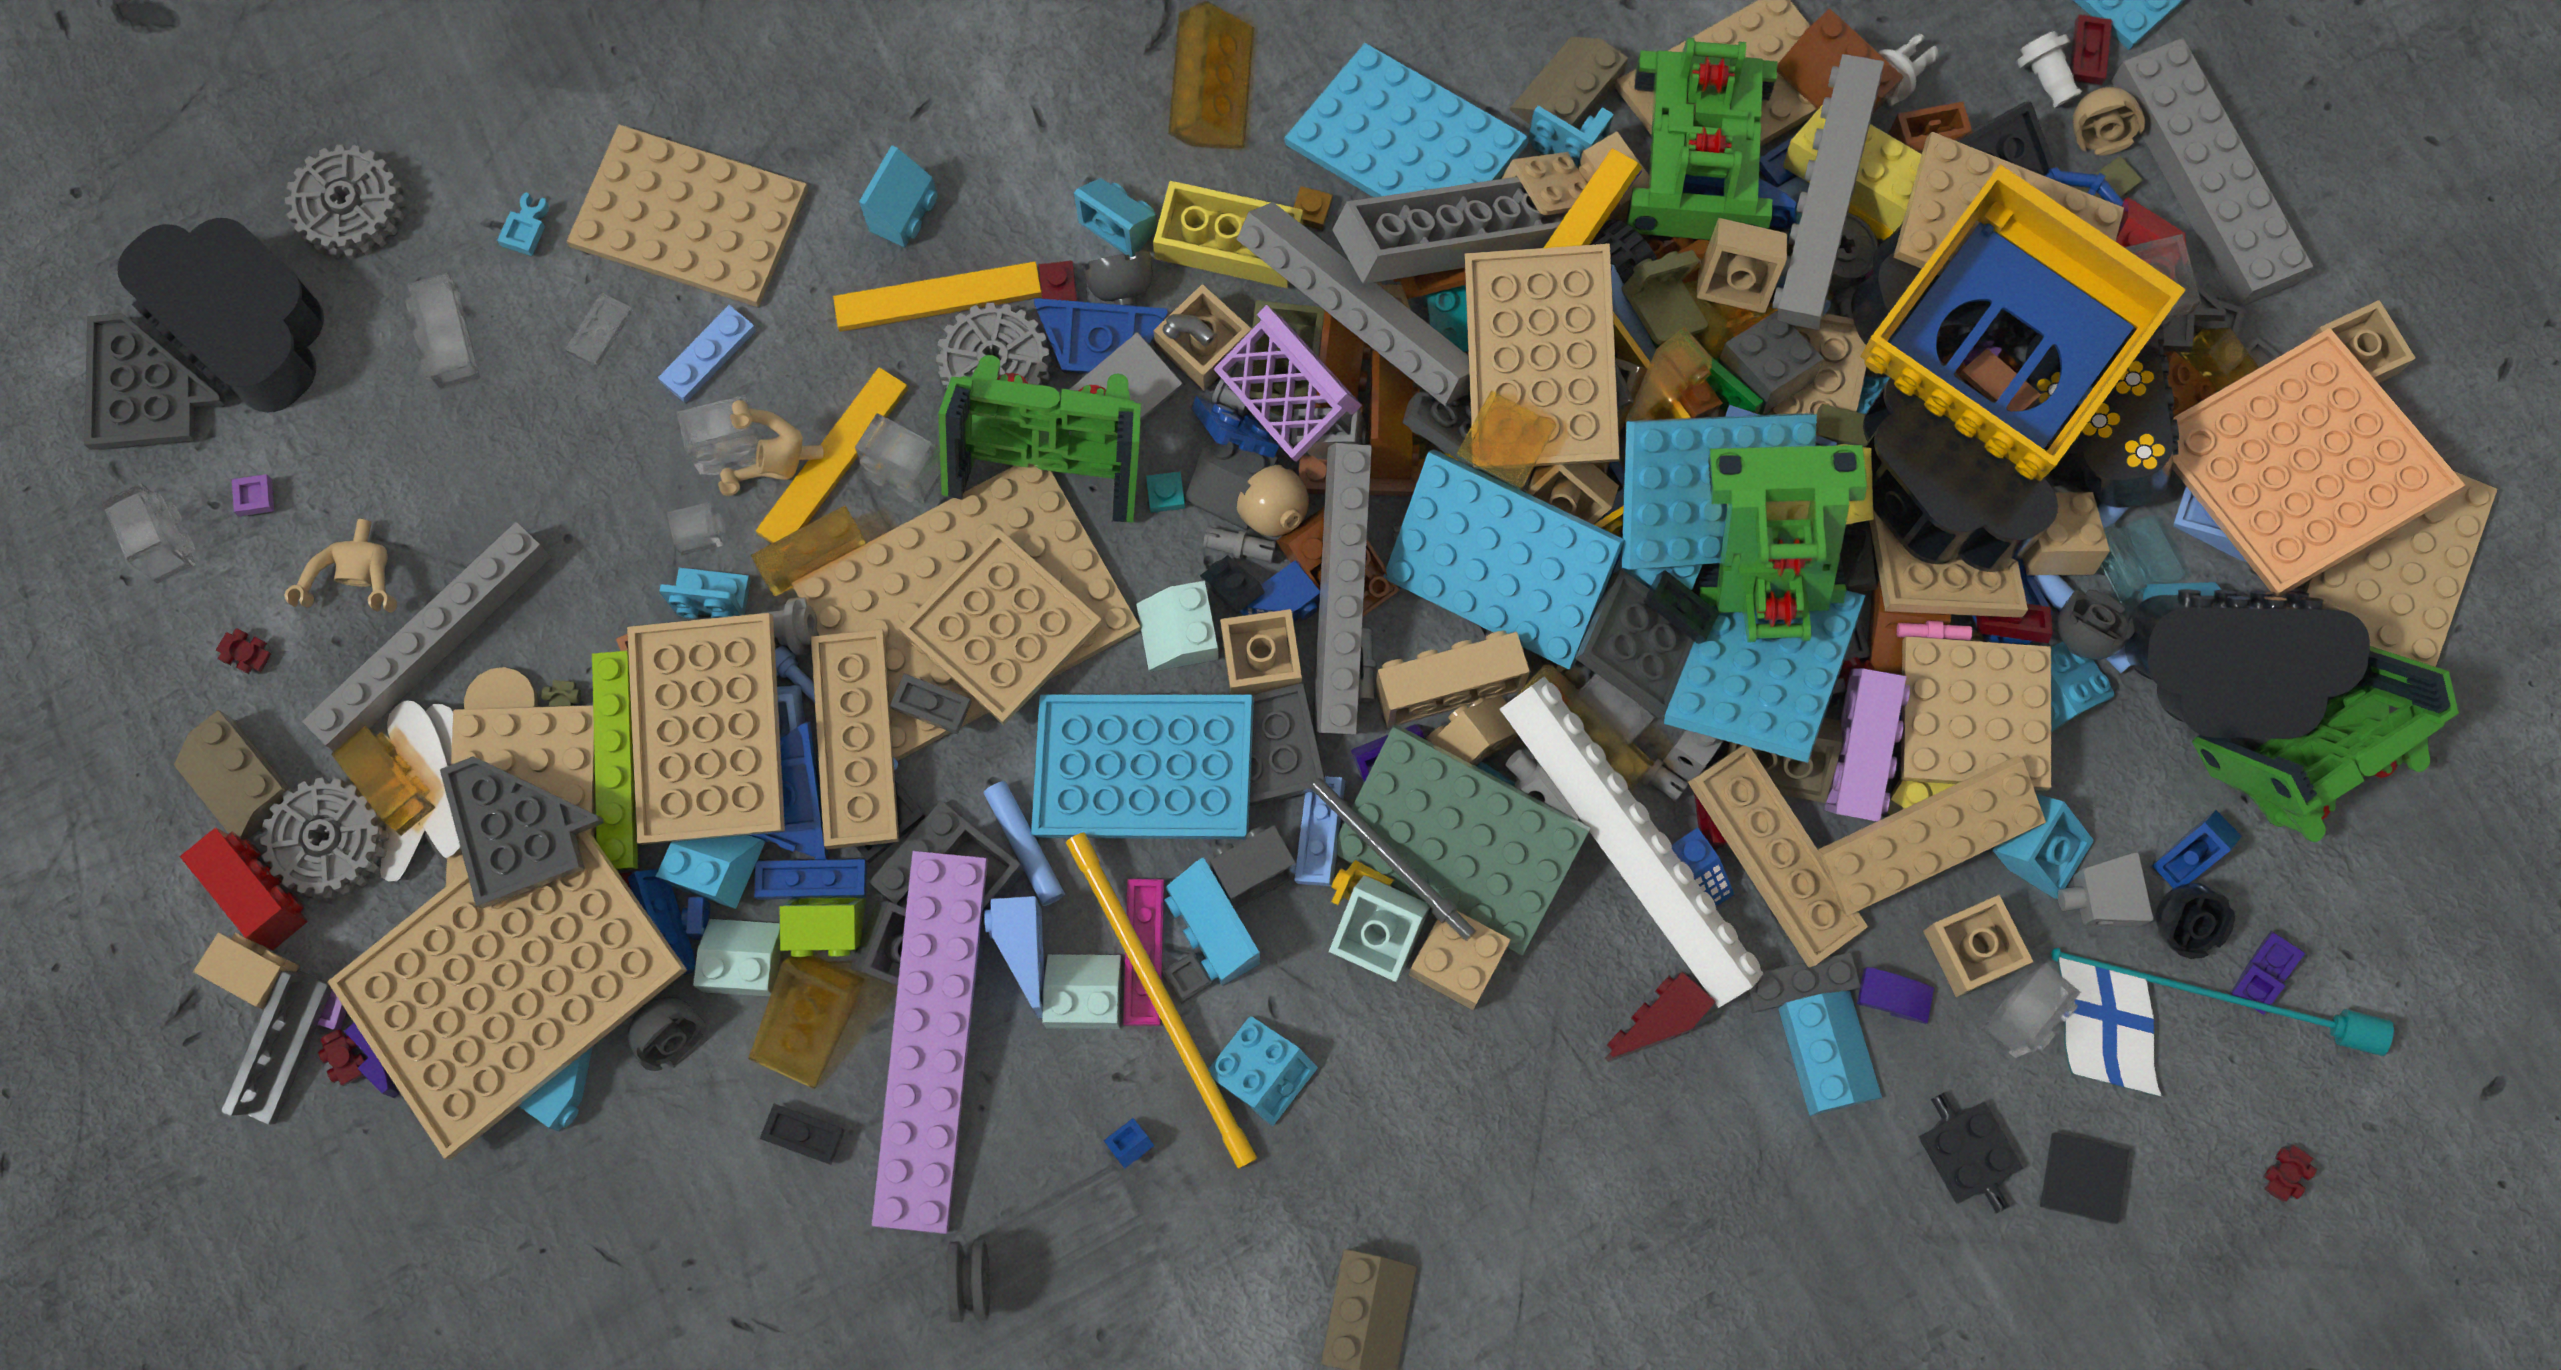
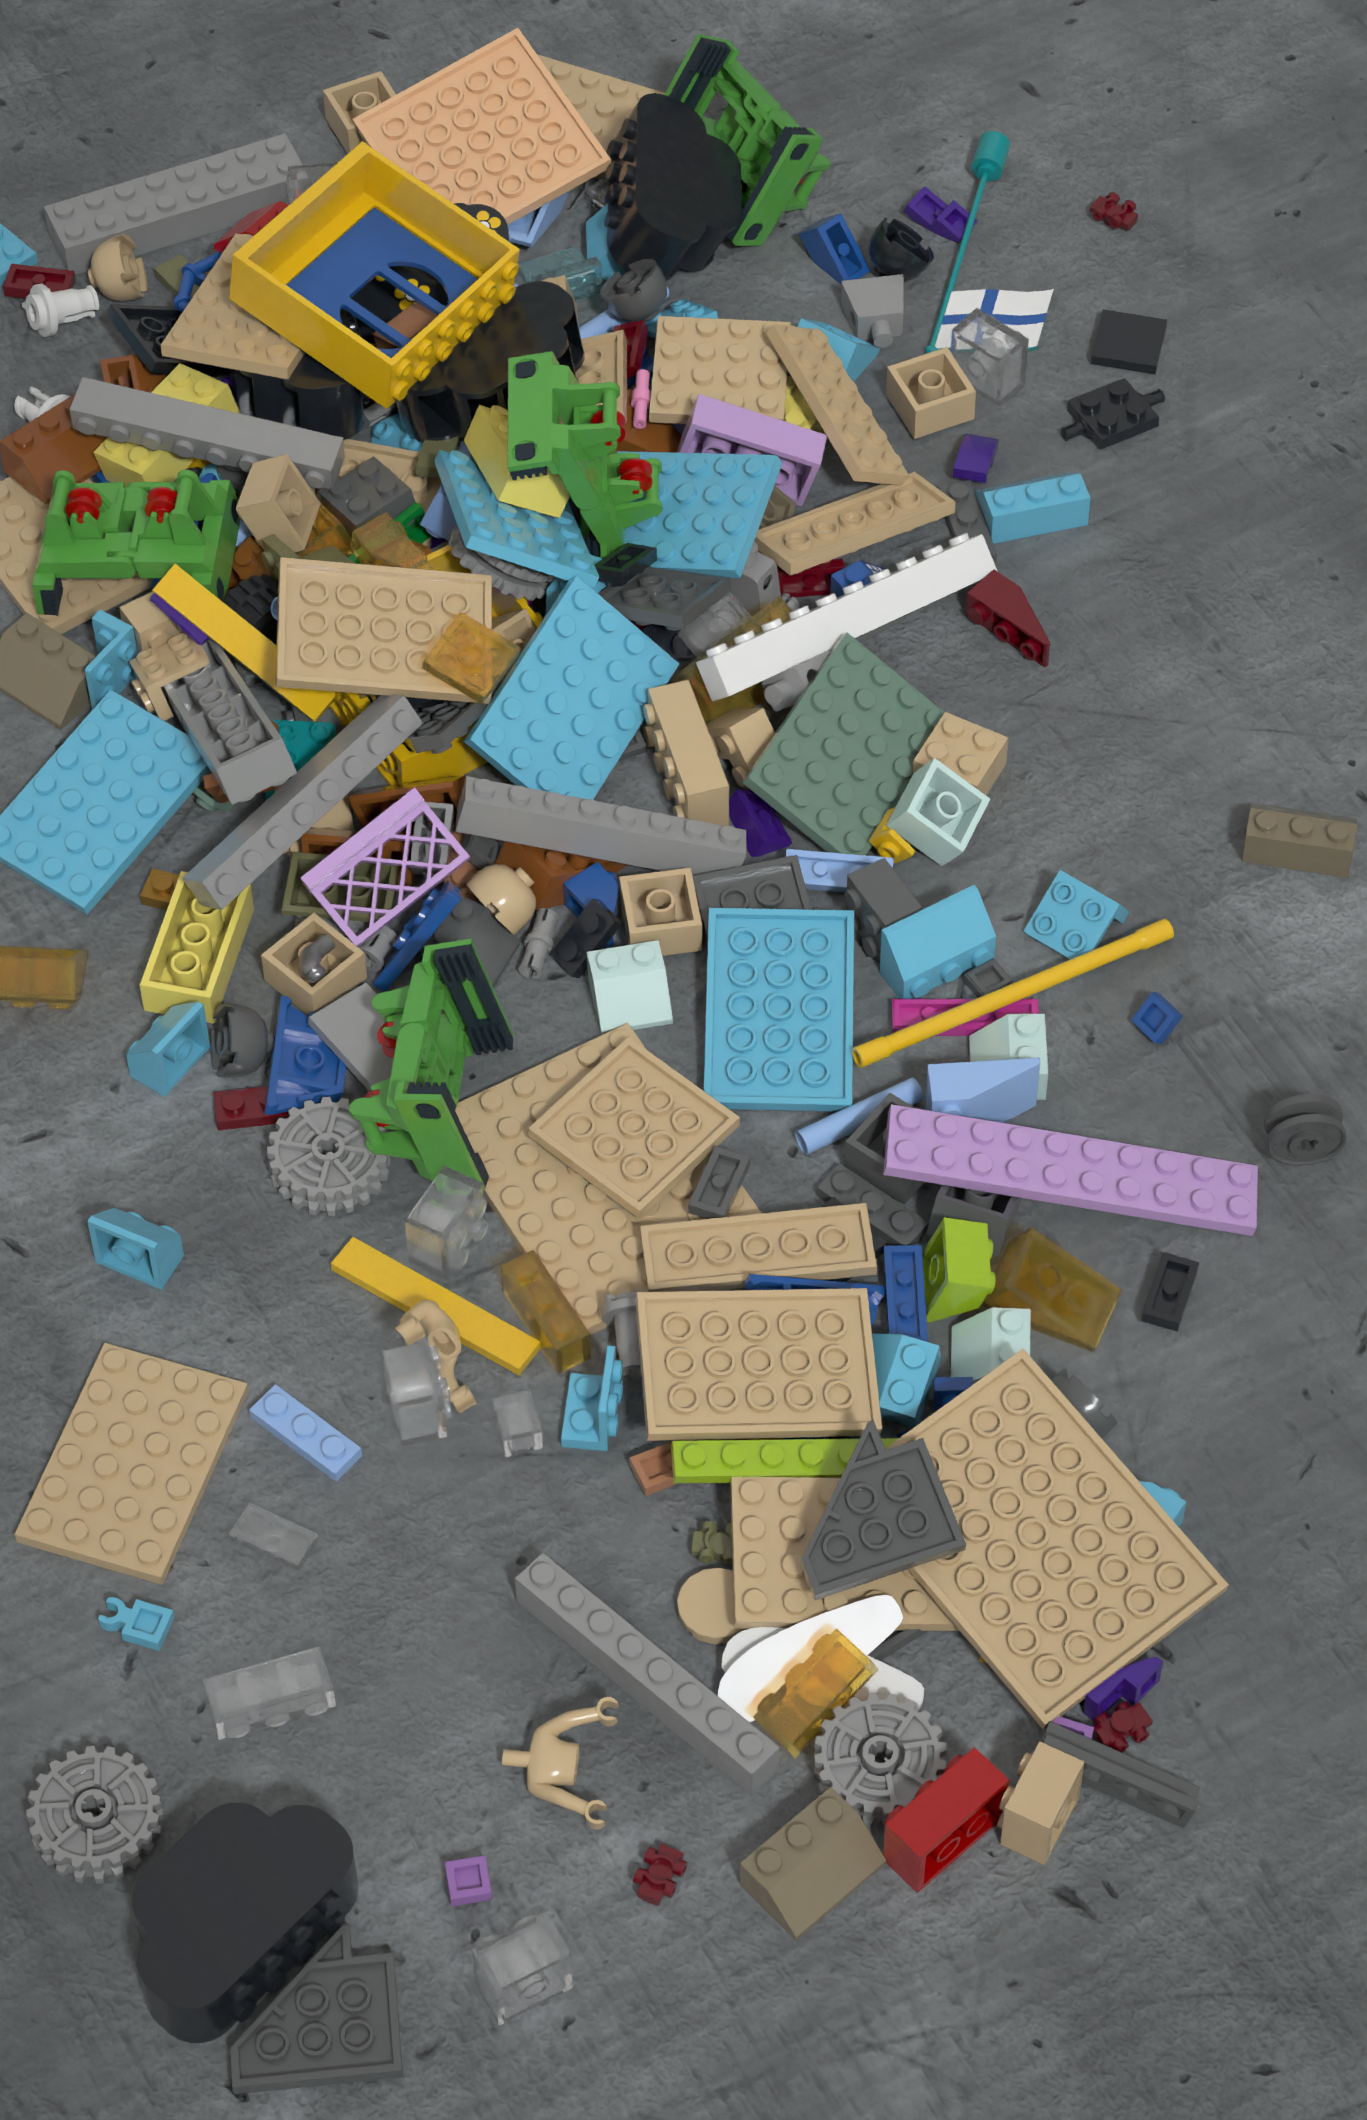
camera: 90 degrees left, 20 degrees down
(937, 296) = (247, 1218): yellow tile -> none
(1442, 908) = (919, 755): dark grey bar -> none

